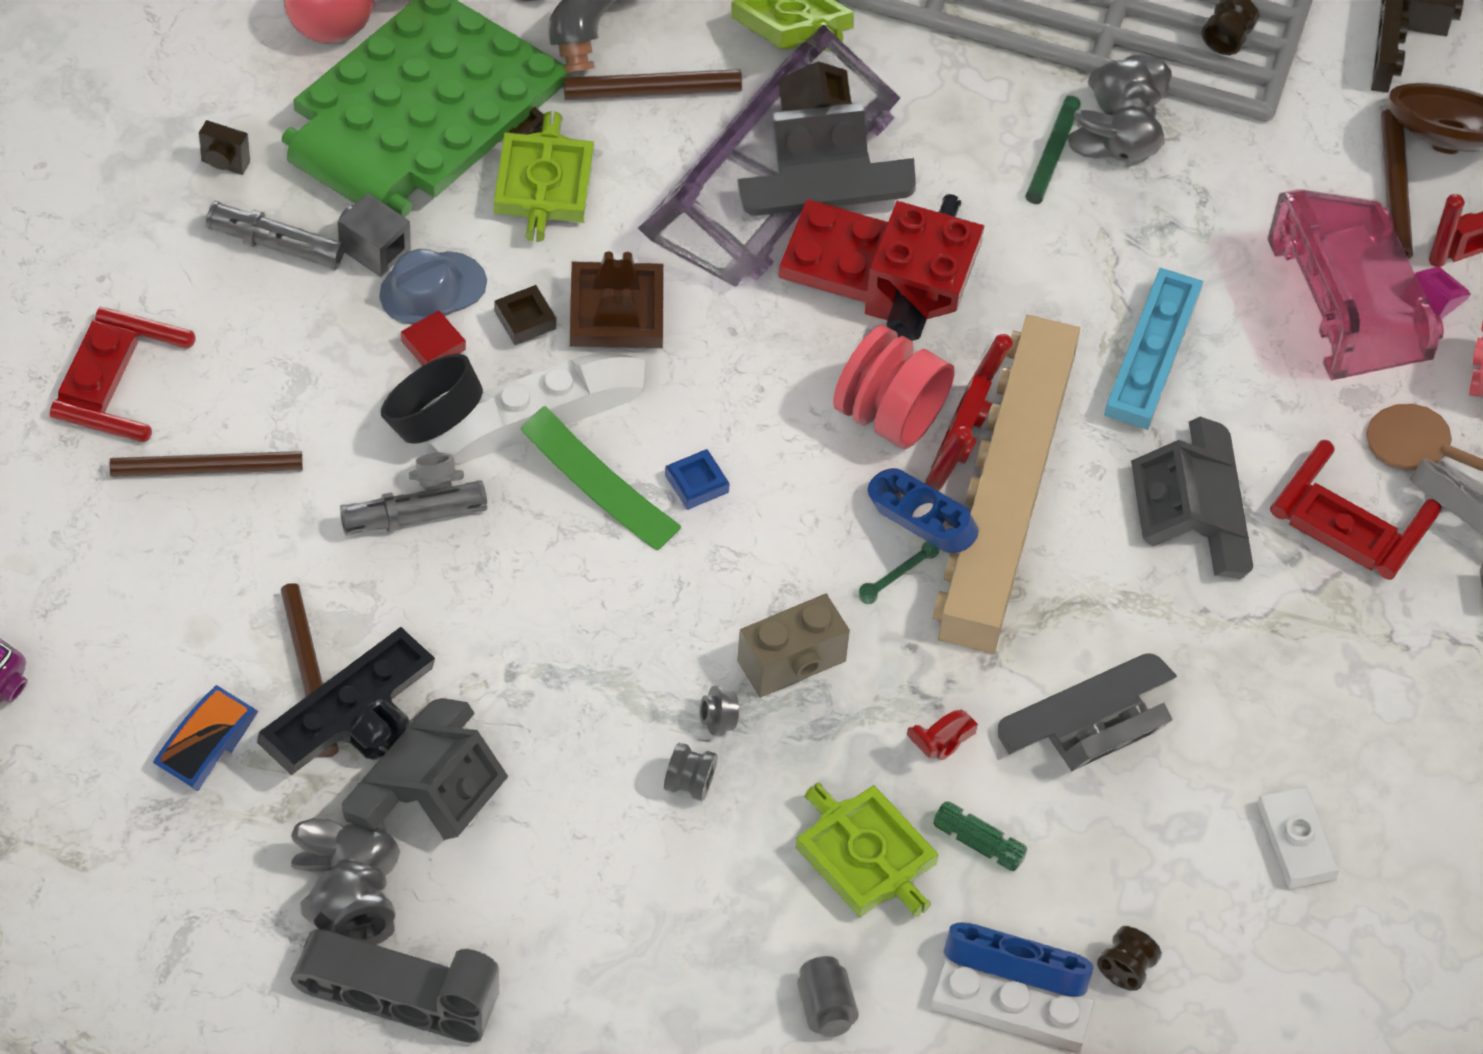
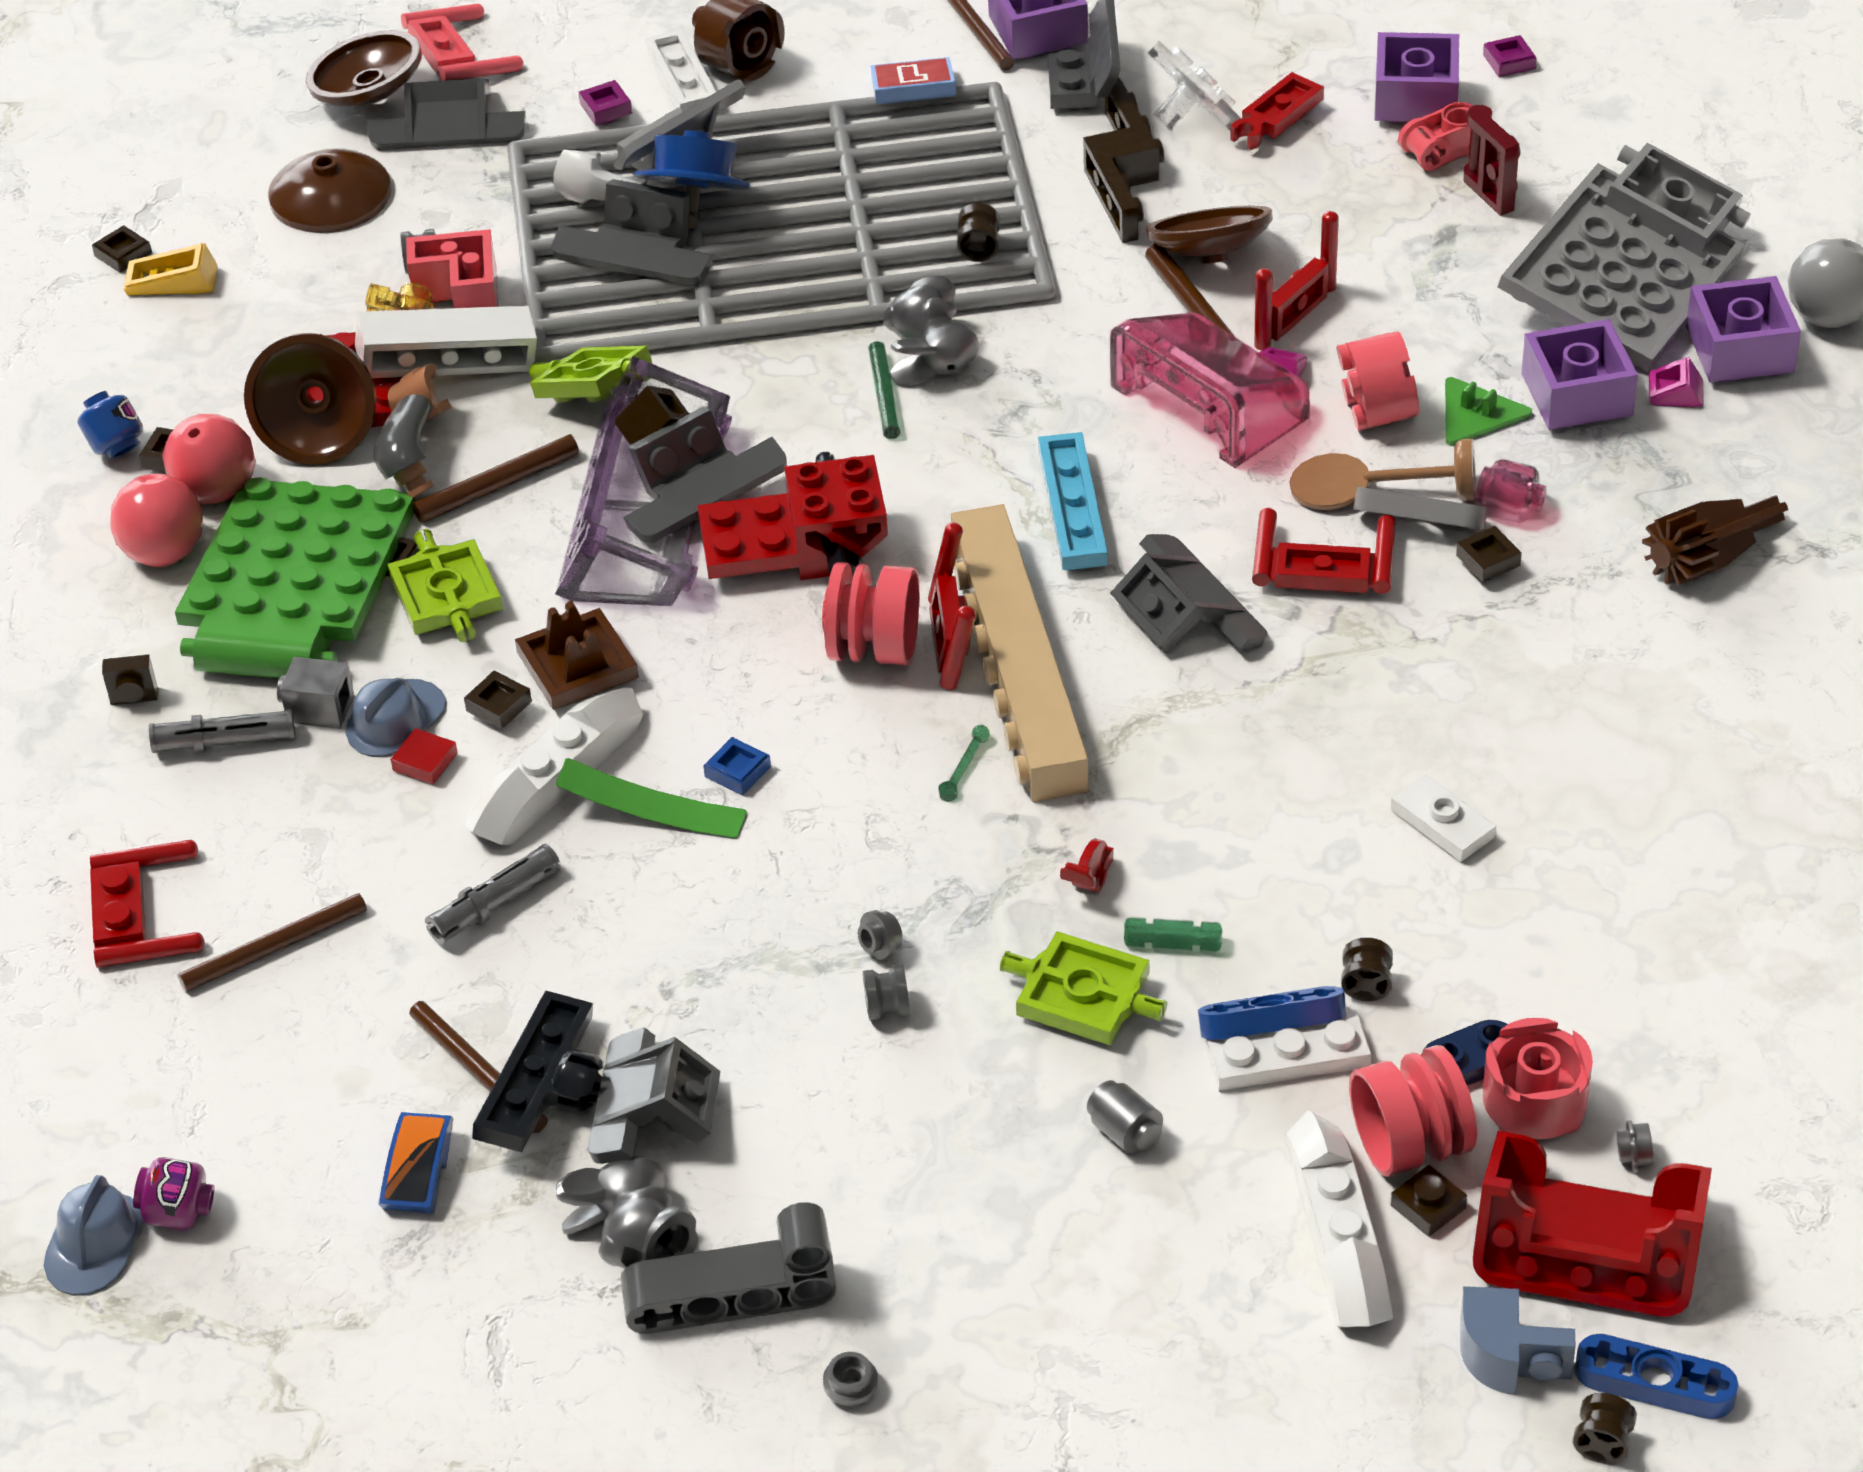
camera: 20 degrees left, 10 degrees down
(435, 471) = (495, 855): light grey plate -> none
(446, 374) = (434, 804): black tyre -> none
(793, 645) = (912, 853): dark tan brick -> none
(929, 525) = (974, 709): blue beam -> none
(1094, 714) = (1209, 798): dark grey plate -> none

